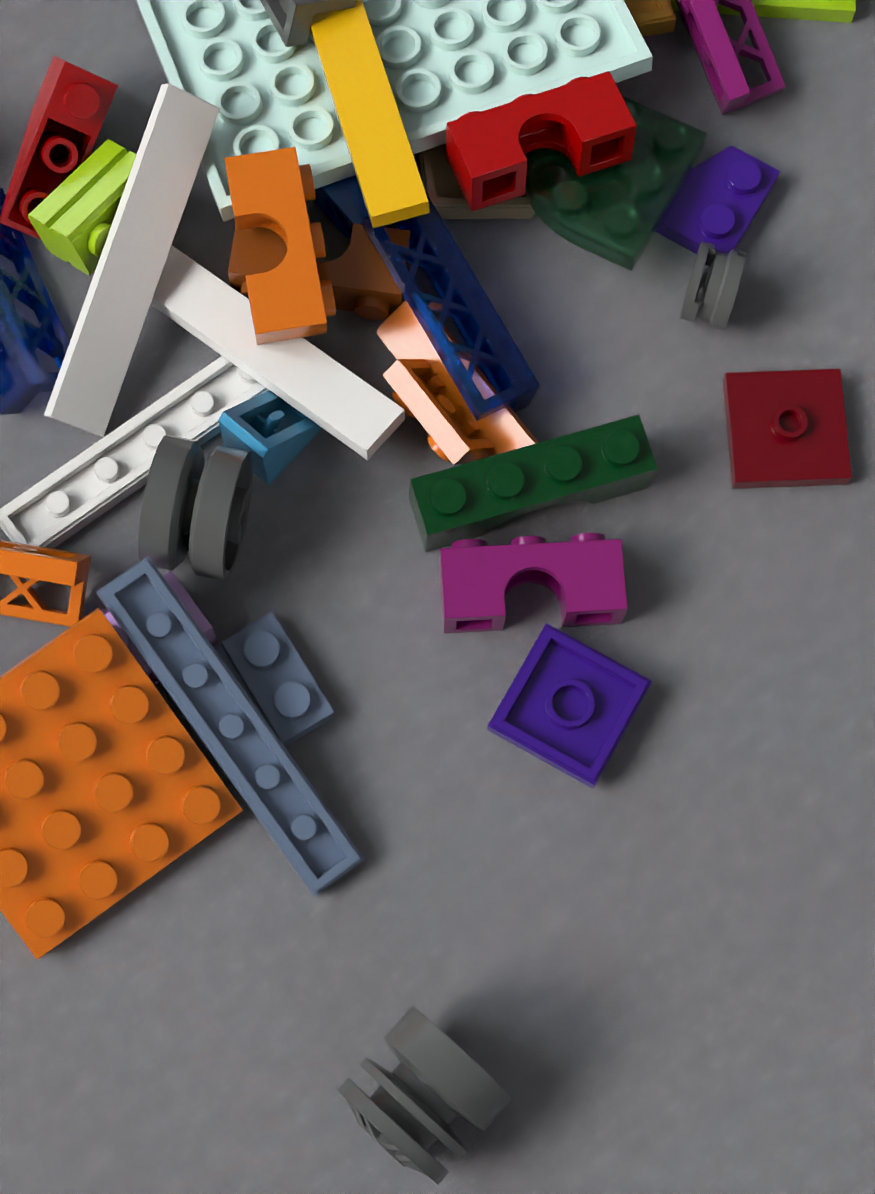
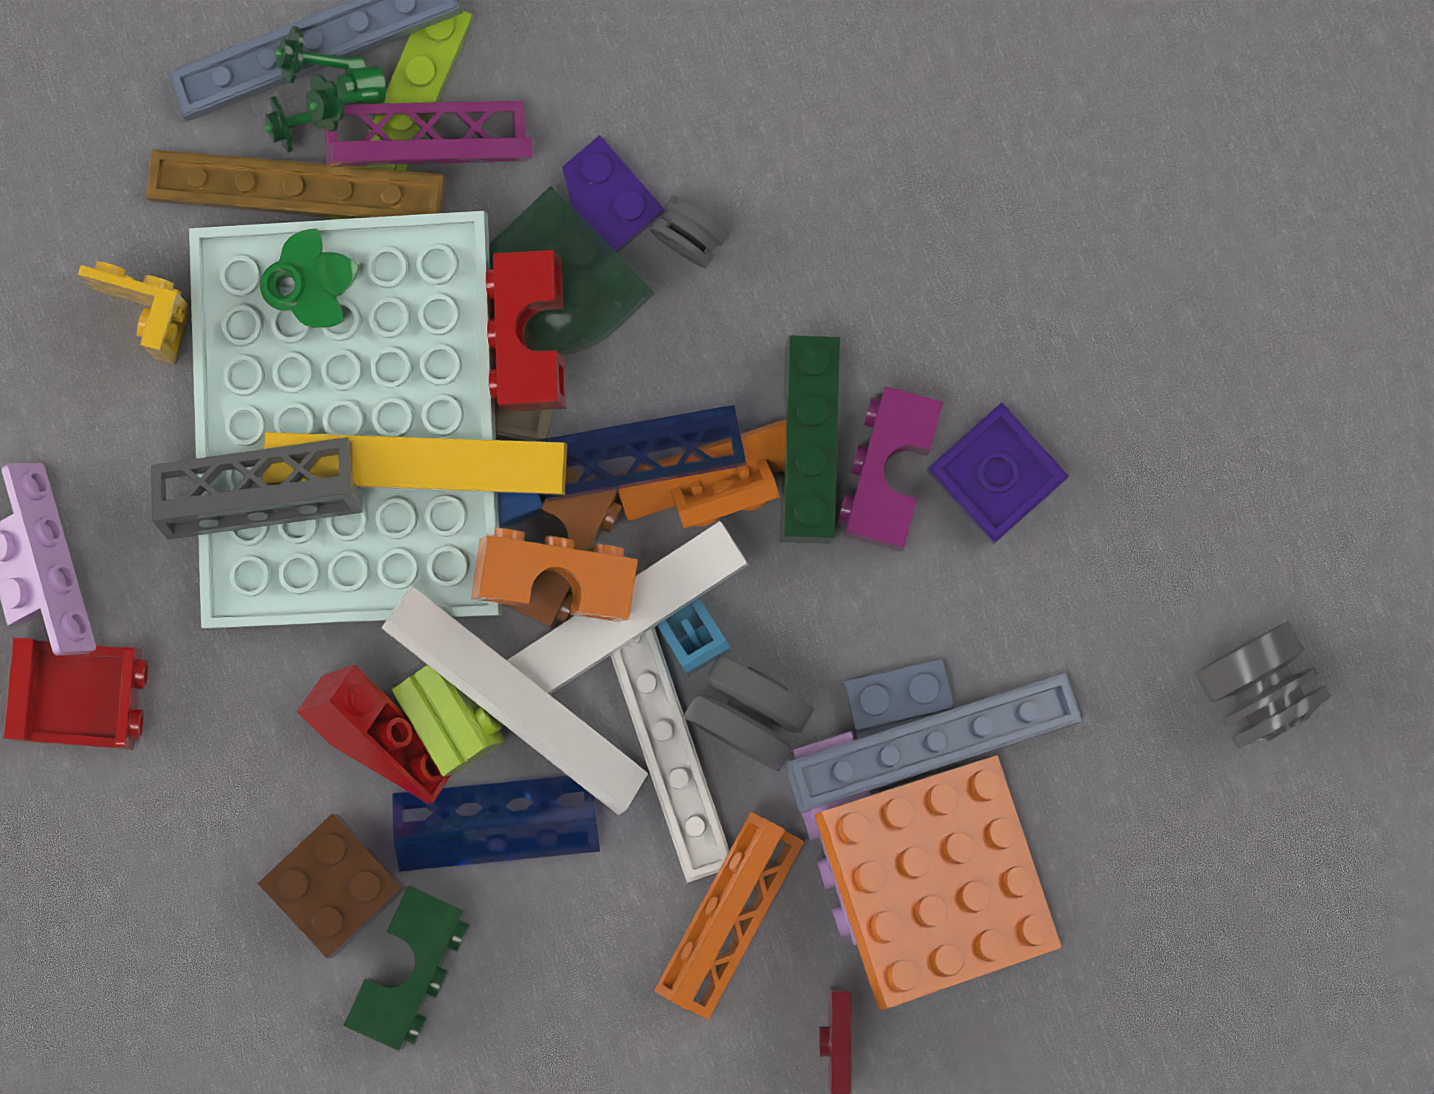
camera: 65 degrees left, 10 degrees up
(786, 428) = (824, 216): dark red plate -> none

